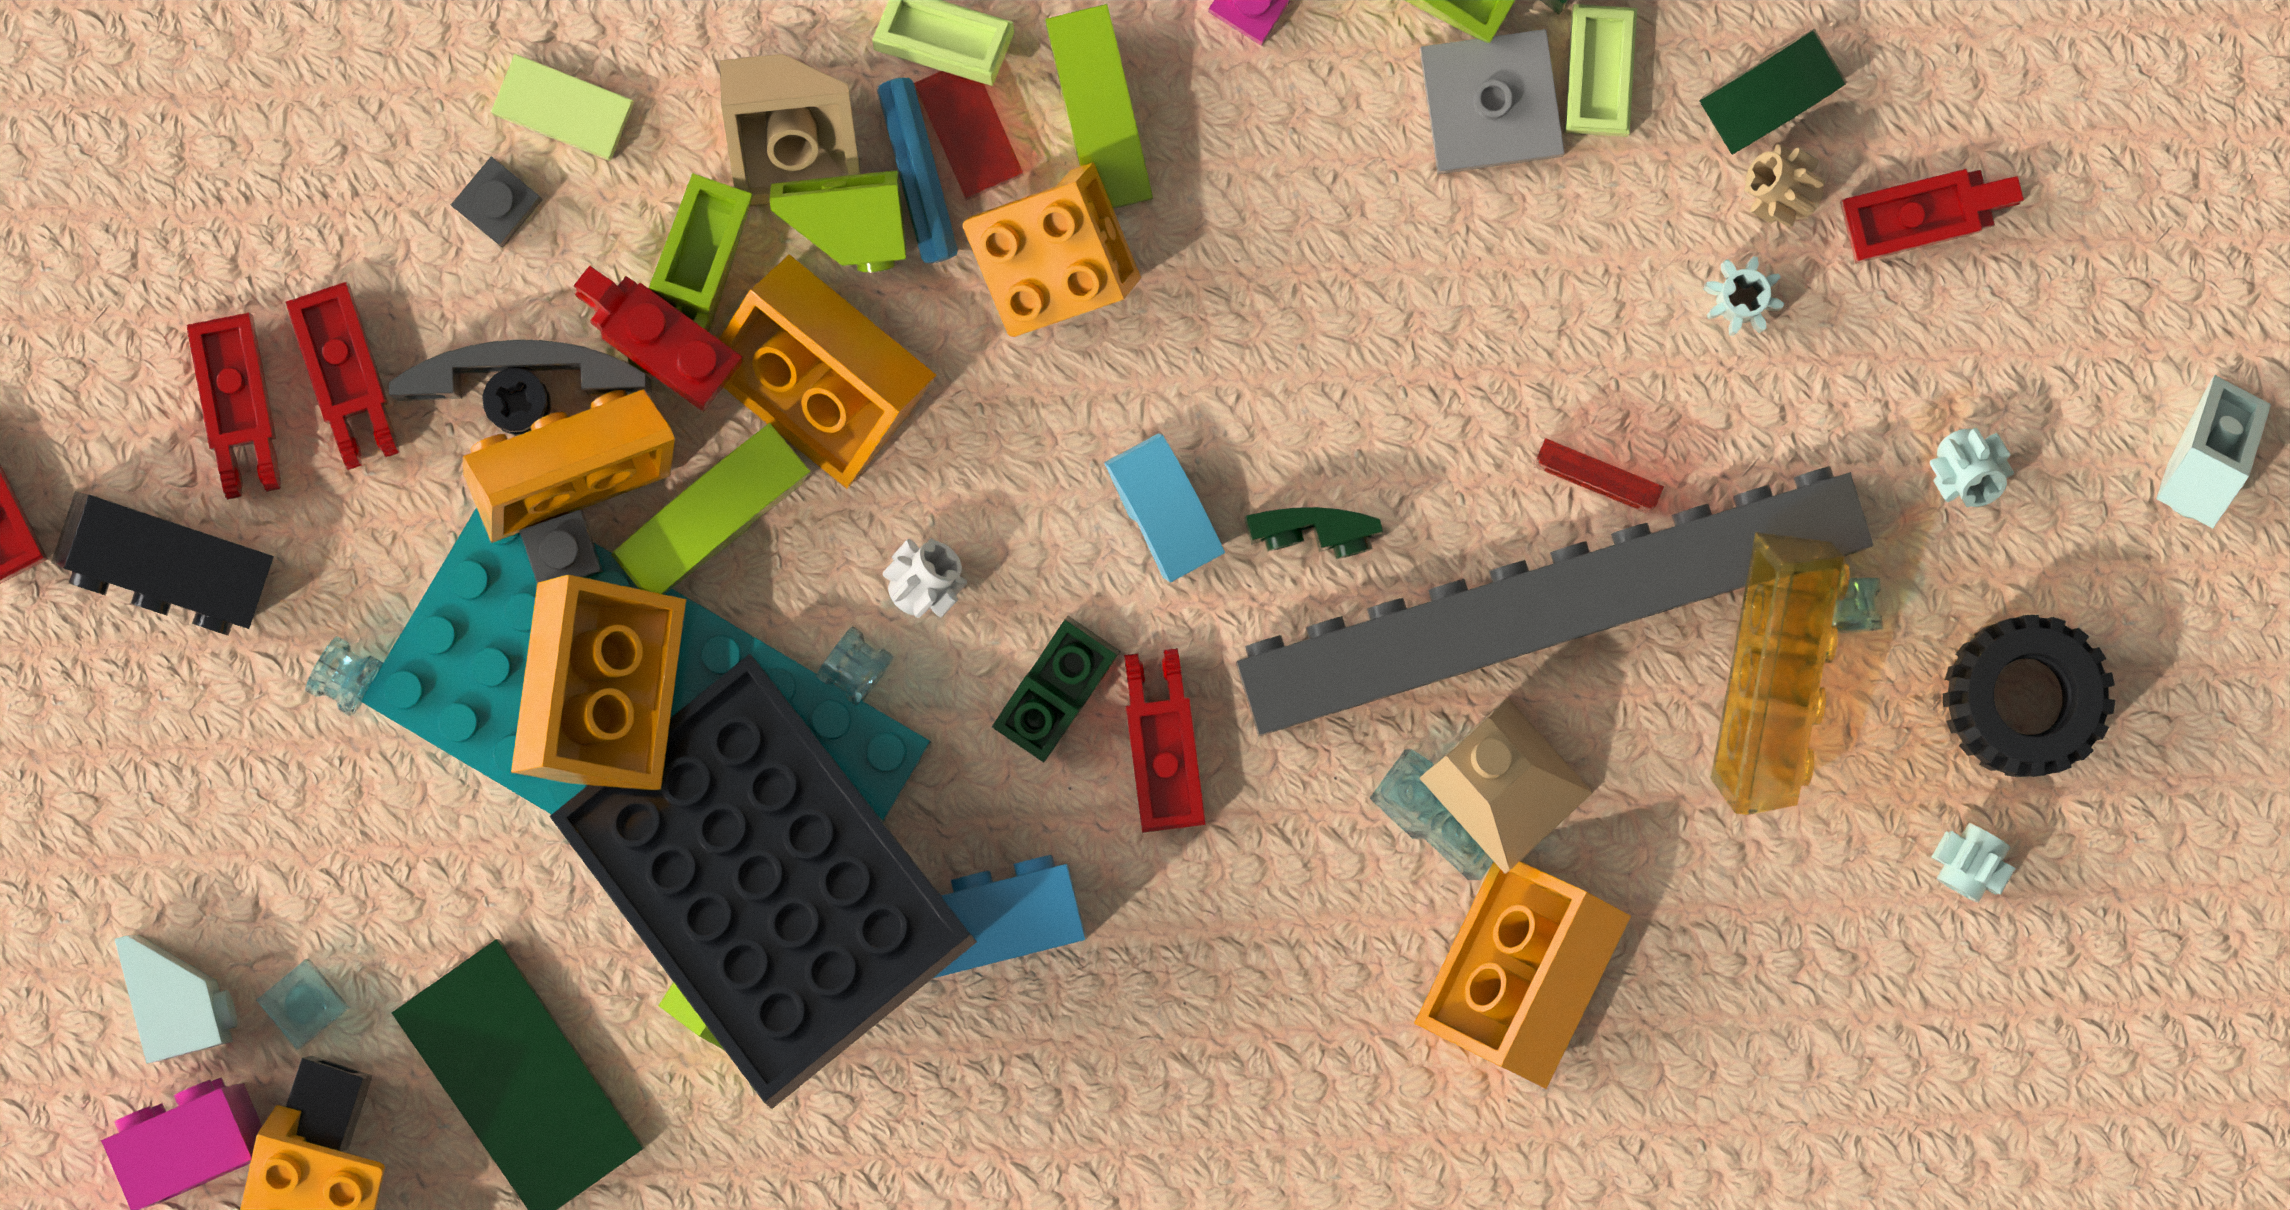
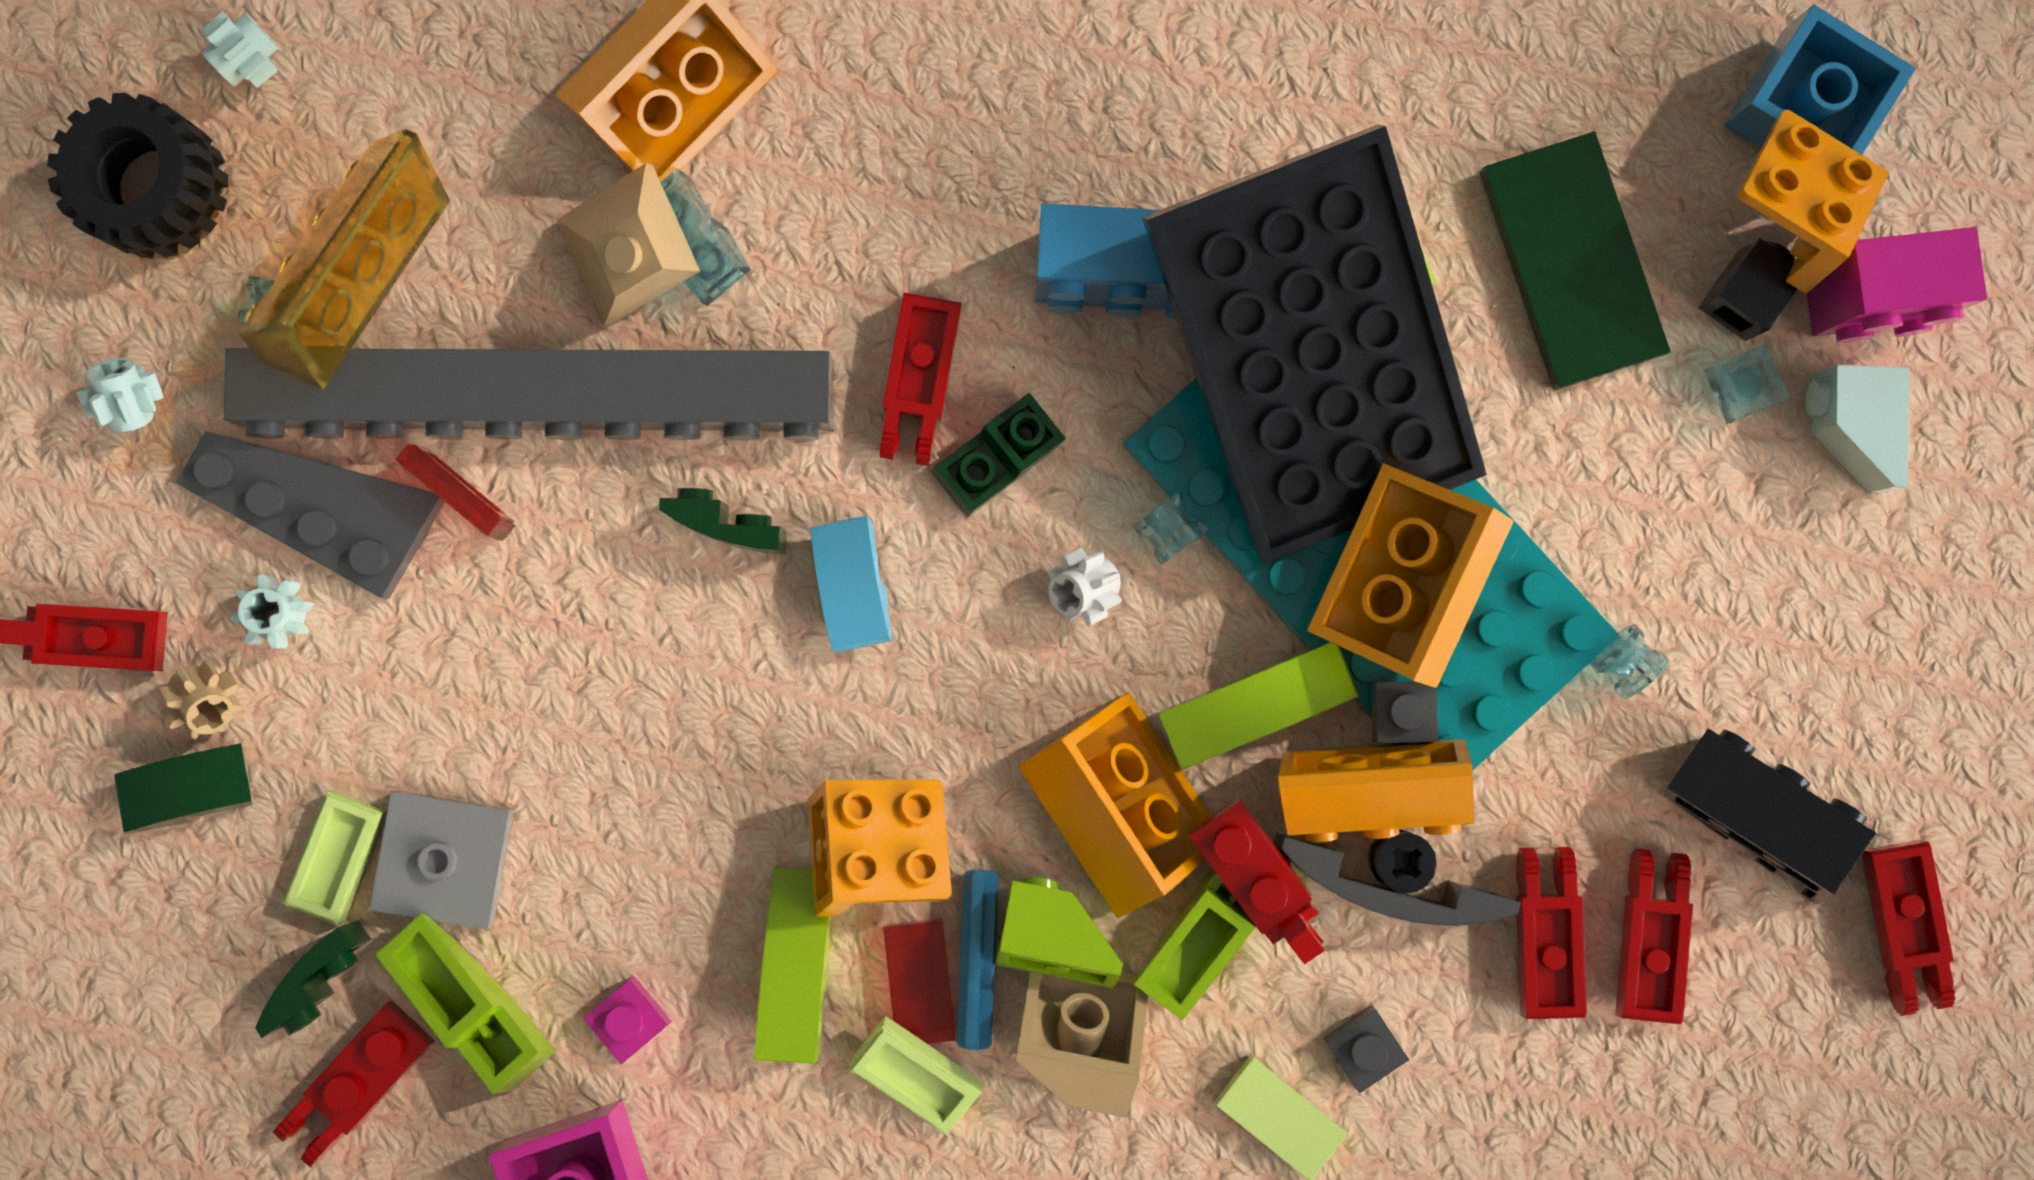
camera: 170 degrees left, 0 degrees up
(1727, 414) = (326, 512): none -> dark grey wing

